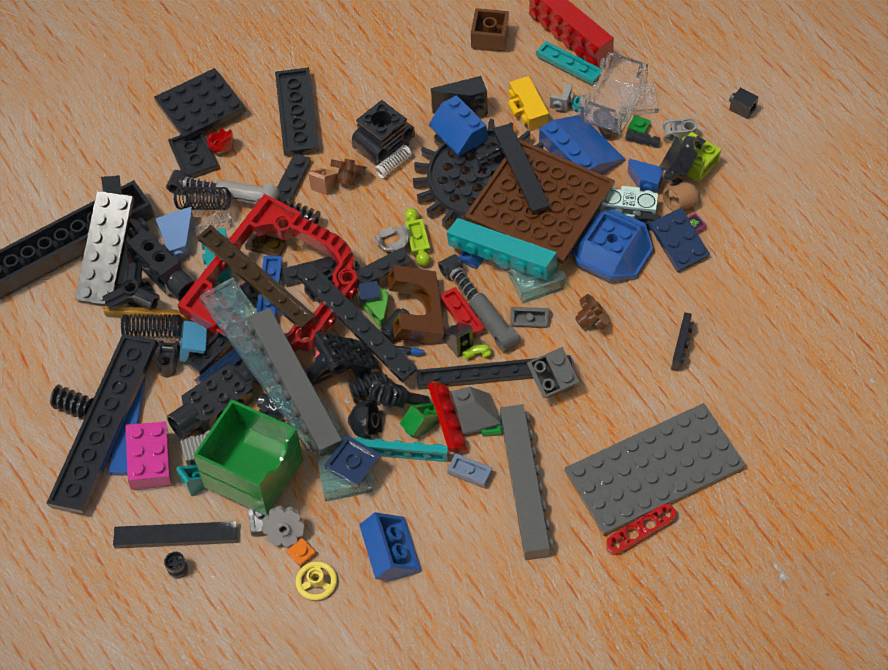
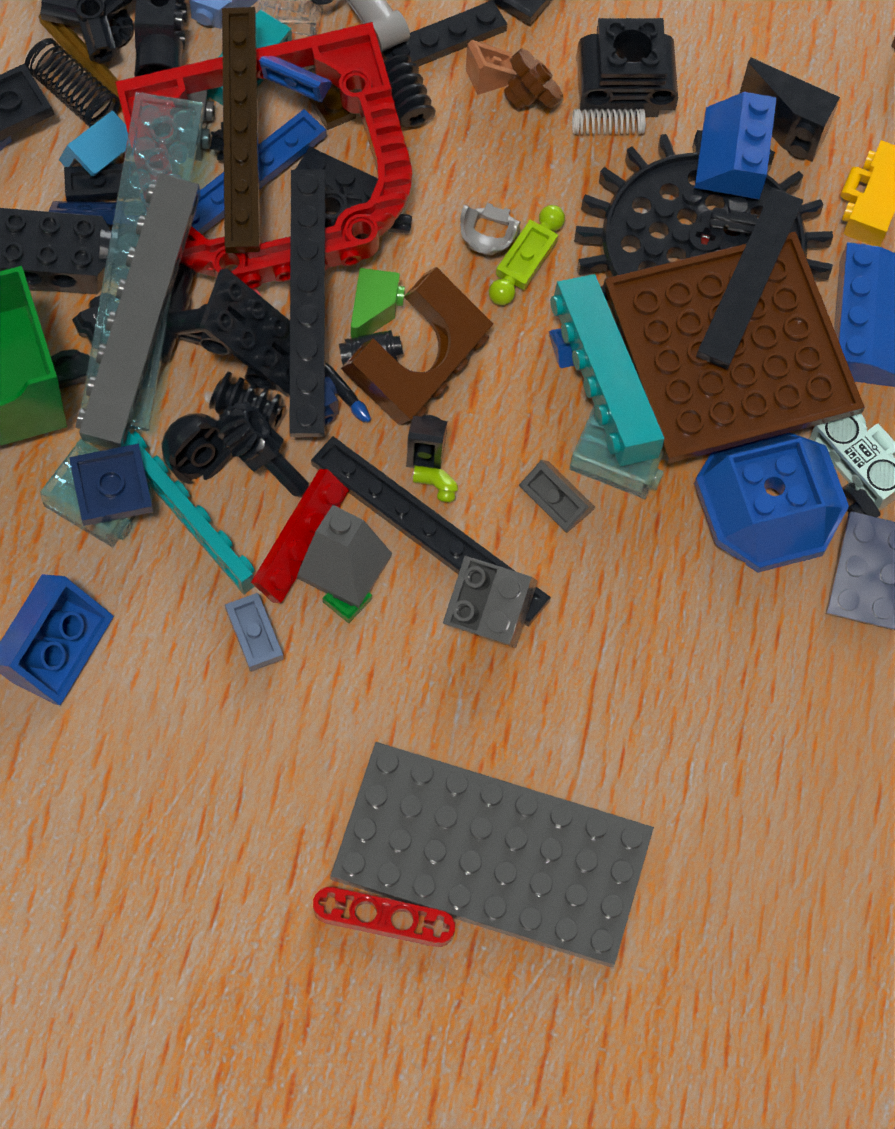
camera: 35 degrees right, 10 degrees up
(167, 358) = (49, 138): black piece -> none
(257, 240) = (294, 77): none -> blue slope
(369, 292) = (374, 275): dark blue tile -> none
(380, 268) = (416, 256): black arch -> none
(419, 419) = (261, 505): green slope -> none
(461, 310) = (471, 411): red plate -> none
(504, 335) = (506, 420): dark grey piece -> none
(524, 482) = (303, 712): dark grey brick -> none
(592, 313) = (637, 567): reddish brown plant -> none
(682, 342) = (717, 717): black plate -> none

